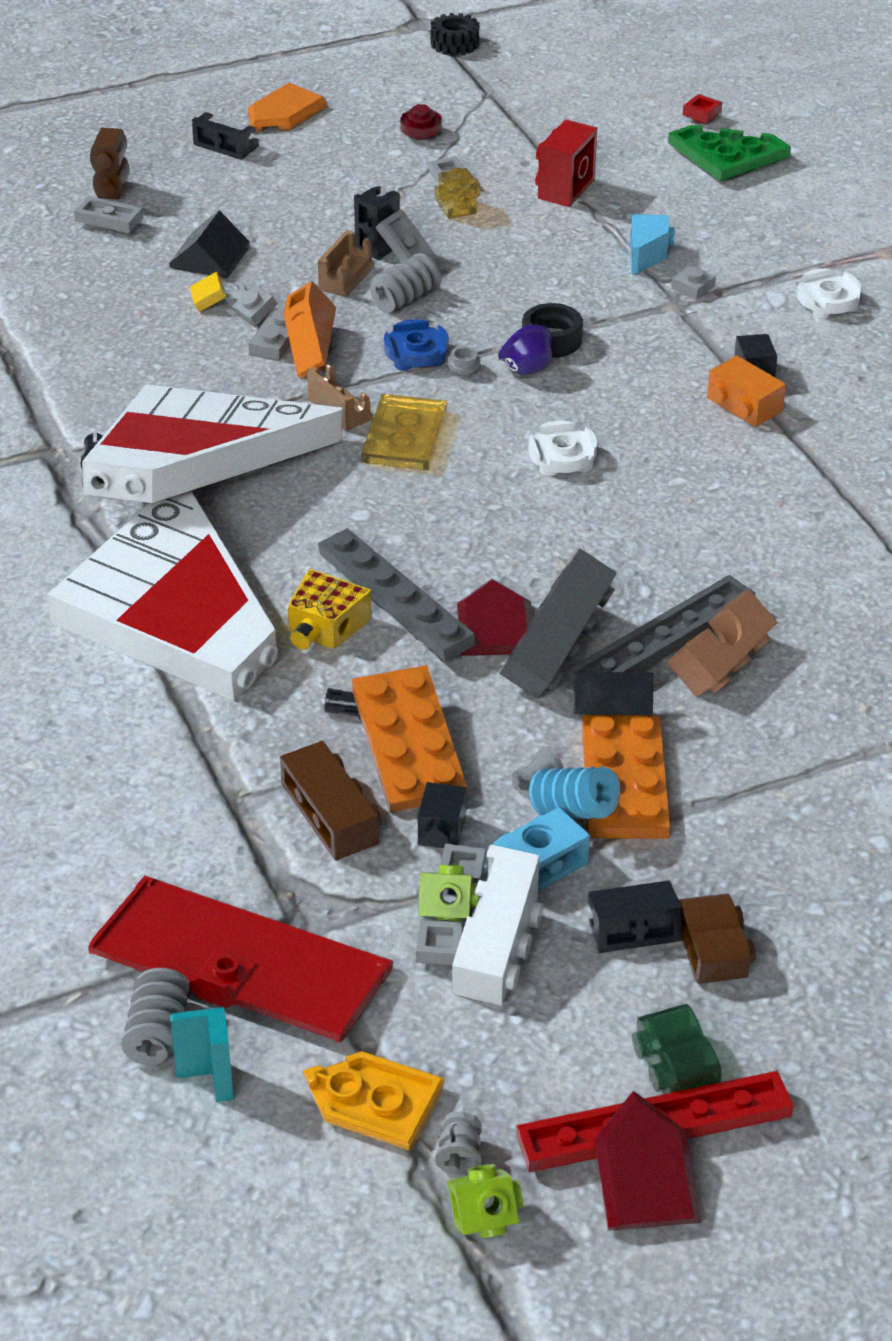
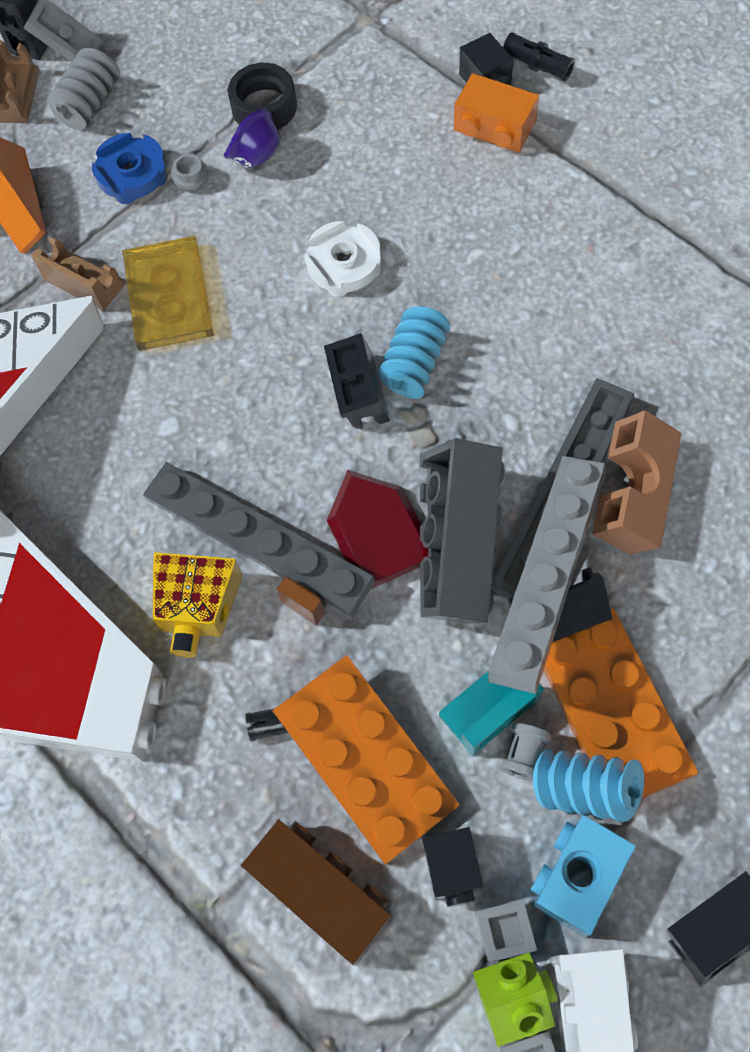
camera: 15 degrees left, 25 degrees up
(409, 637) = (301, 600): none -> dark orange tile
(516, 748) = (485, 712): none -> teal panel
(529, 522) = (356, 381): none -> black hinge
(586, 516) = (413, 351): none -> medium azure piece
(611, 655) = (547, 576): none -> light grey plate
(807, 366) = (539, 56): none -> black pin

